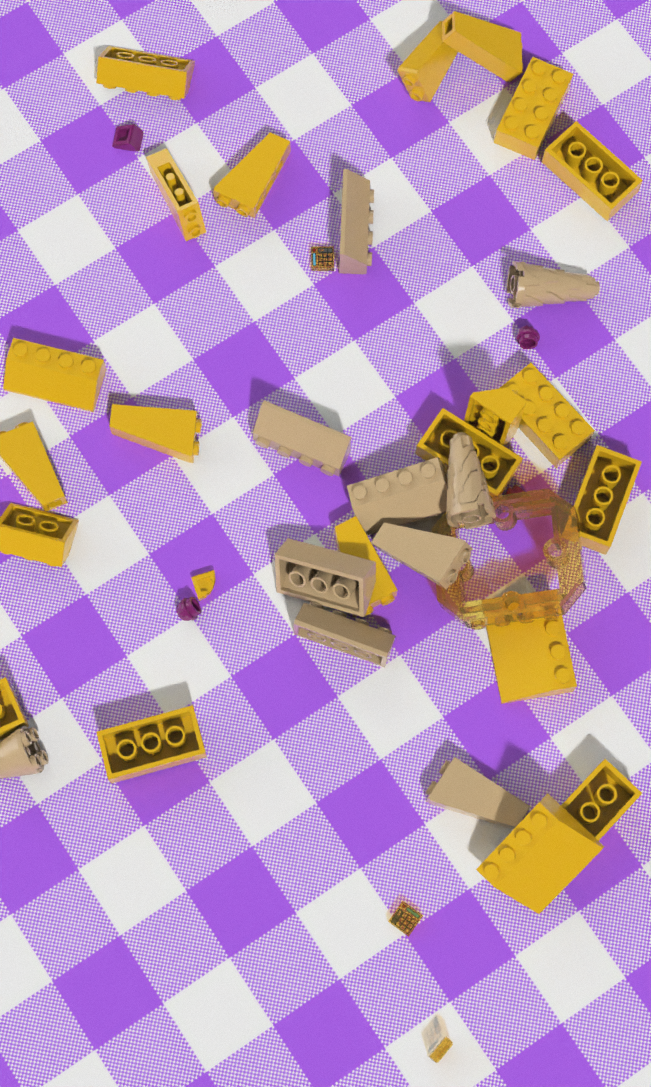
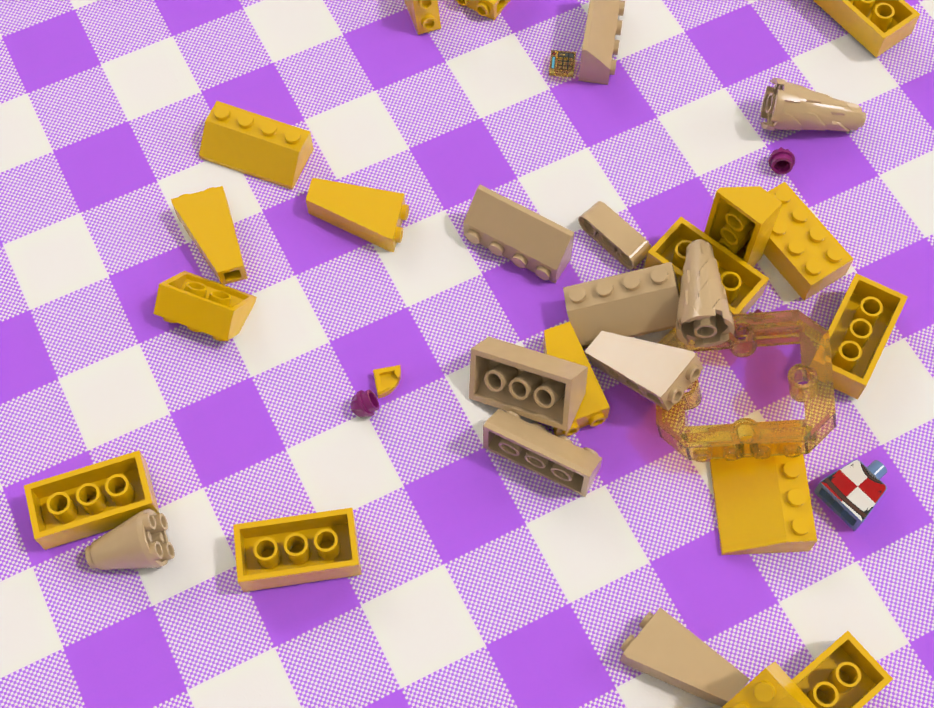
camera: 10 degrees right, 10 degrees down
(386, 426) = (614, 235): none -> tan beam
(606, 637) = (853, 491): none -> torso

